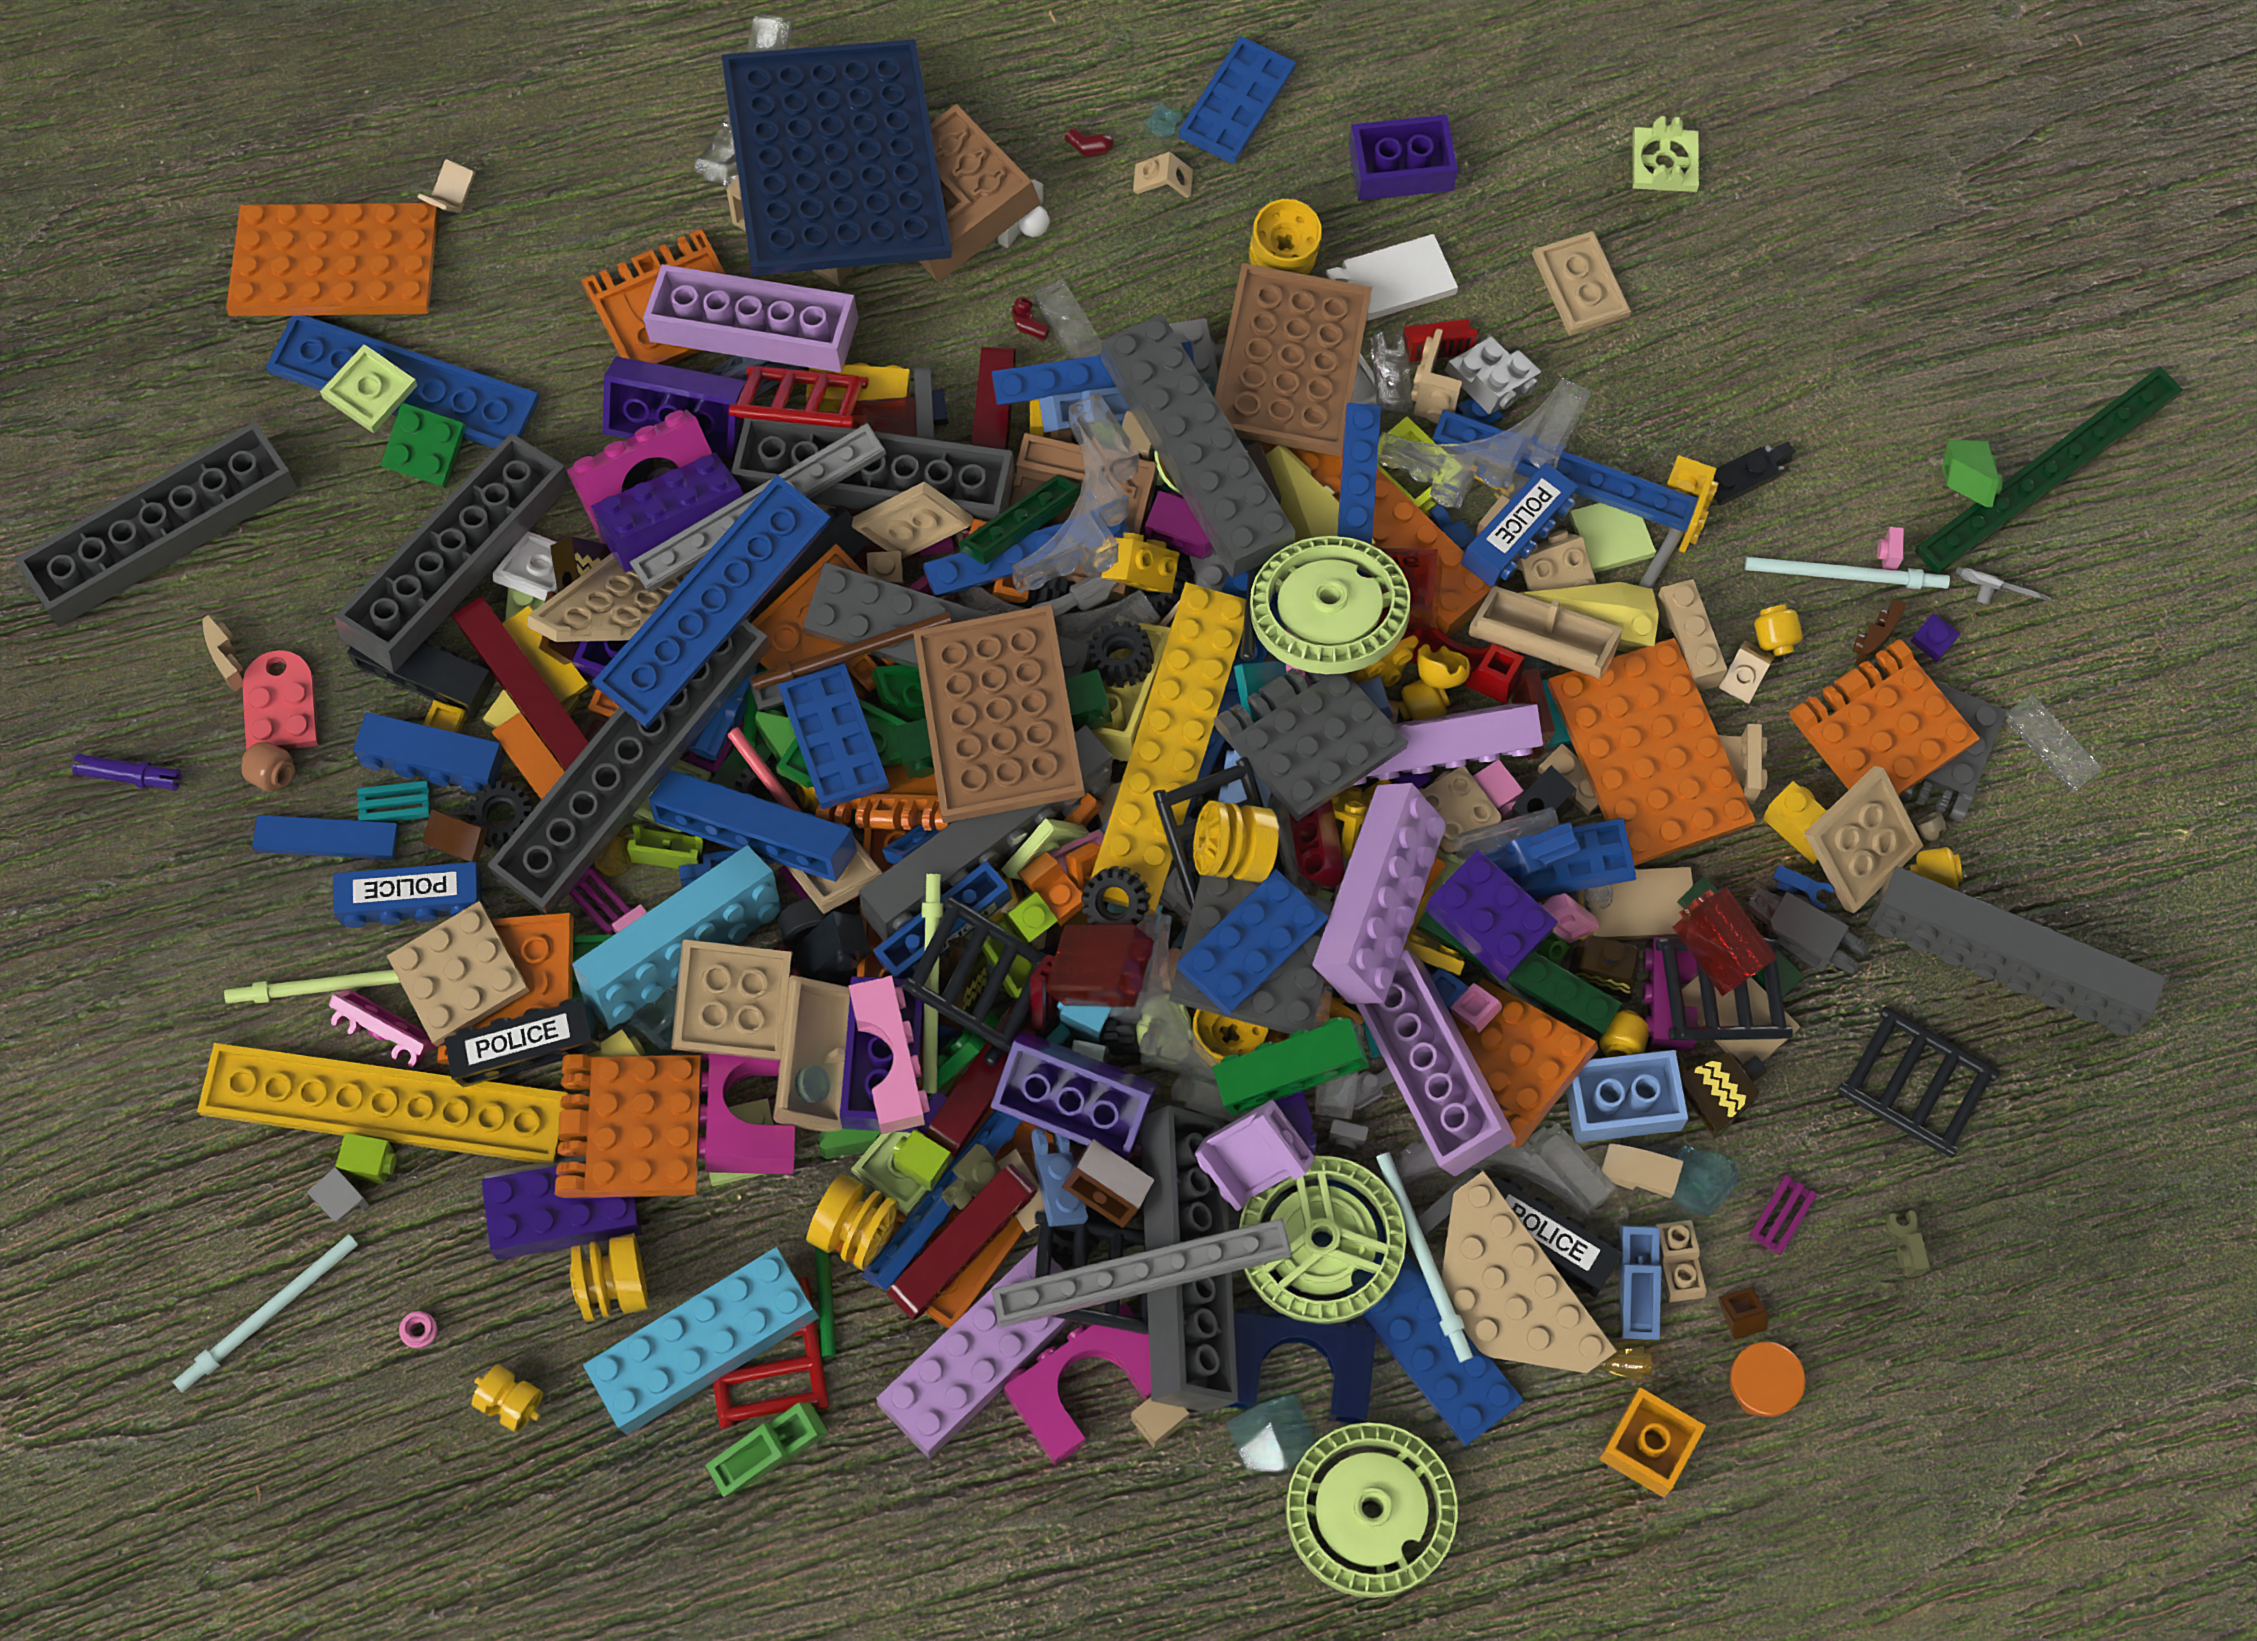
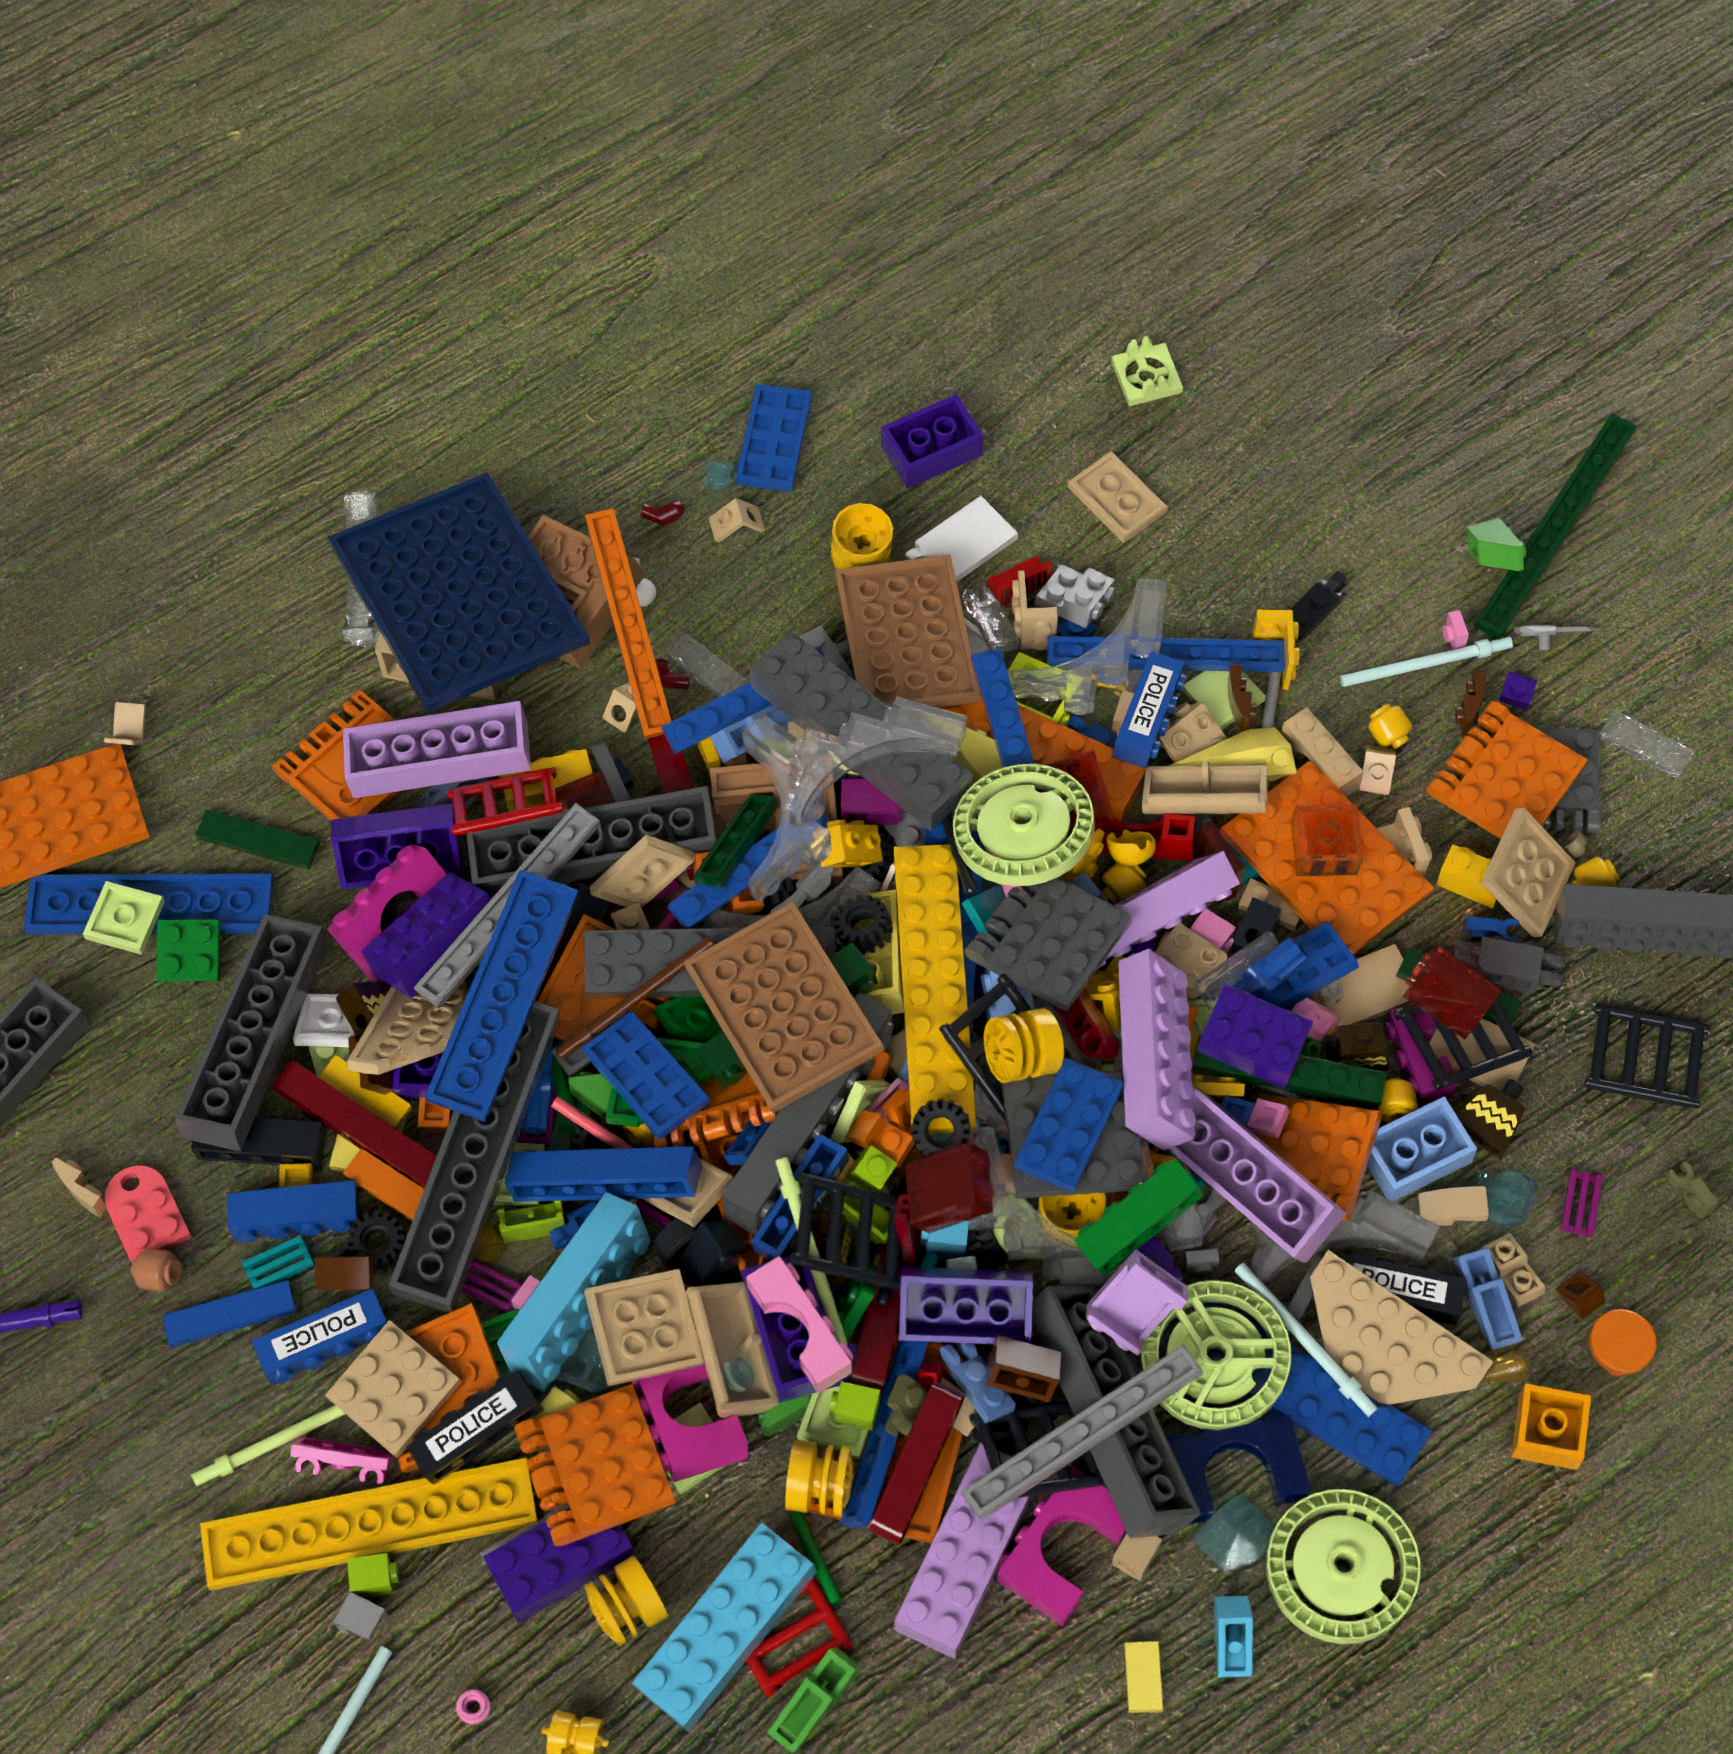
camera: 15 degrees left, 5 degrees down
(538, 352) = (257, 839): none -> dark green tile
(977, 329) = (621, 696): none -> tan bracket
(999, 247) = (628, 622): none -> orange plate
(1011, 1153) = (930, 1373): none -> red piece
(1116, 1549) = (1143, 1677): none -> light yellow tile
(1190, 456) = (905, 728): none -> clear arch
(1226, 1541) = (1233, 1636): none -> medium azure slope
(1624, 550) = (1240, 700): none -> reddish brown slope
(1655, 730) = (1326, 840): none -> clear orange brick

